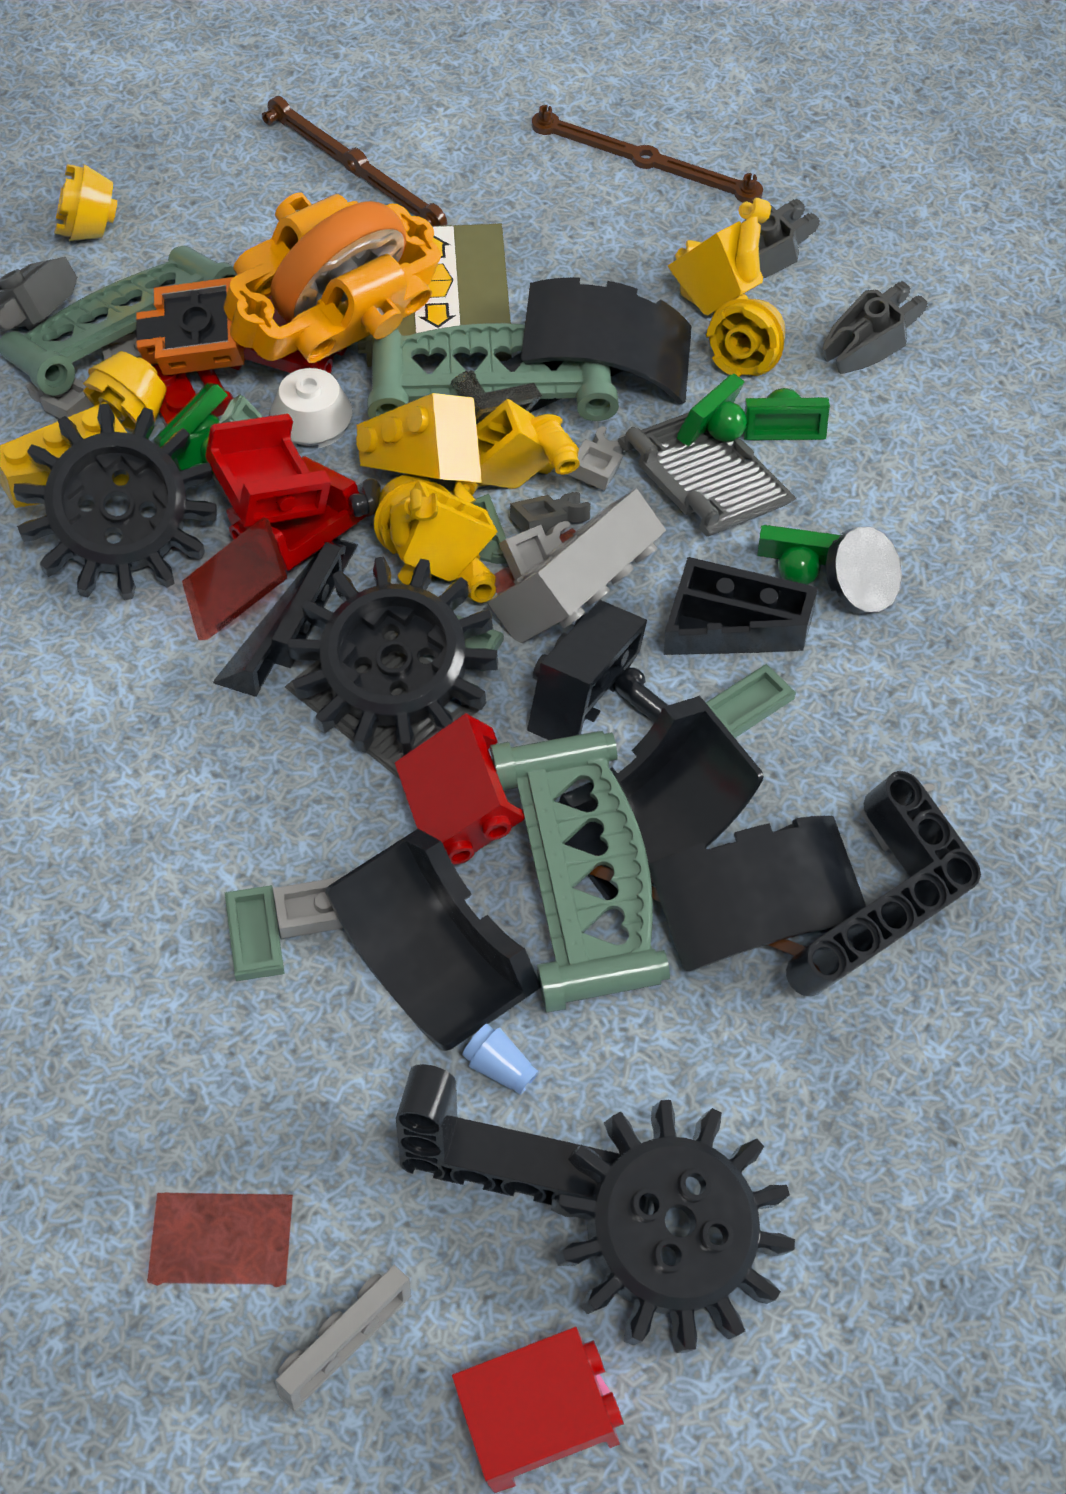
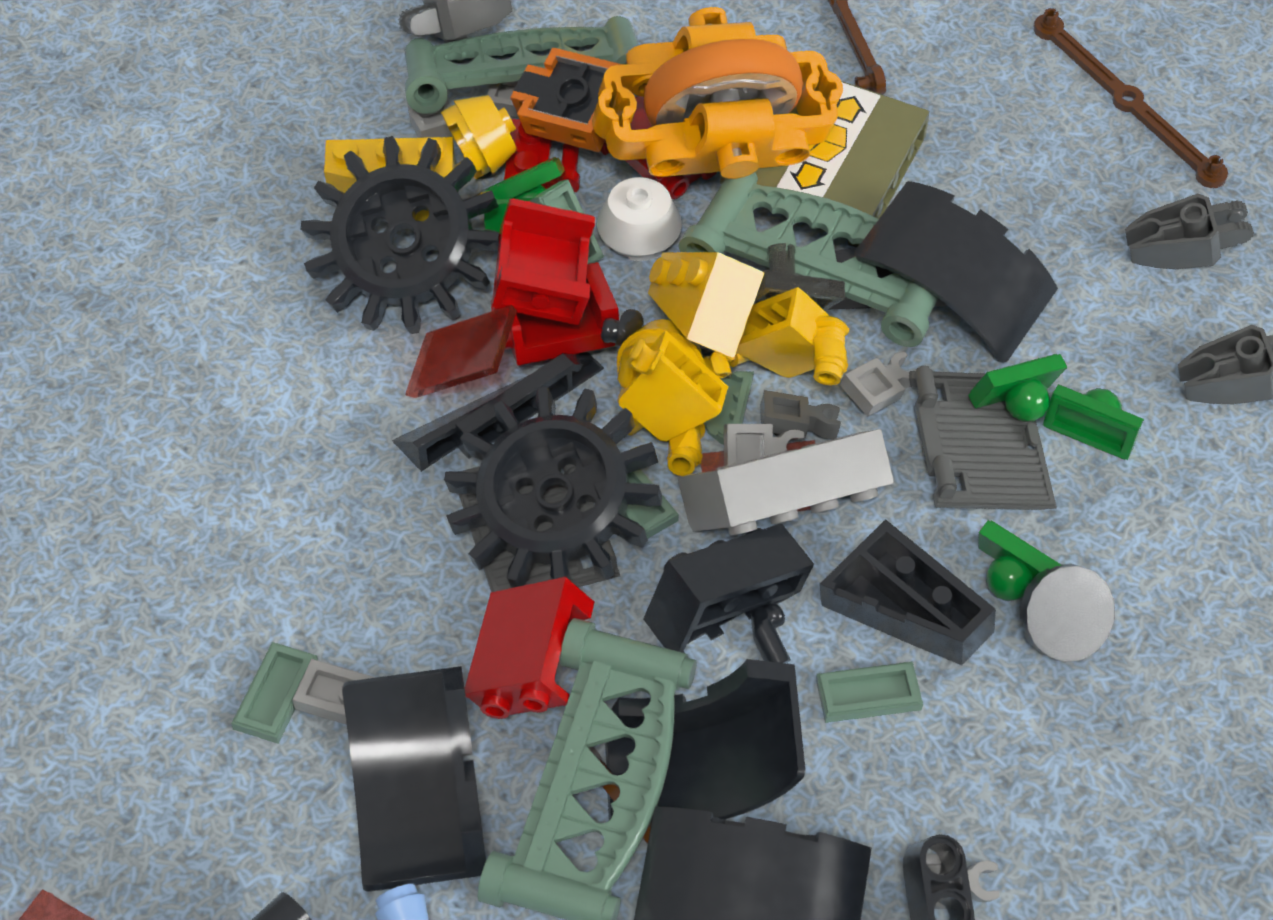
camera: 30 degrees right, 0 degrees up
(725, 263) = (1119, 240): yellow torso -> none
(746, 337) = (1102, 322): yellow cone -> none

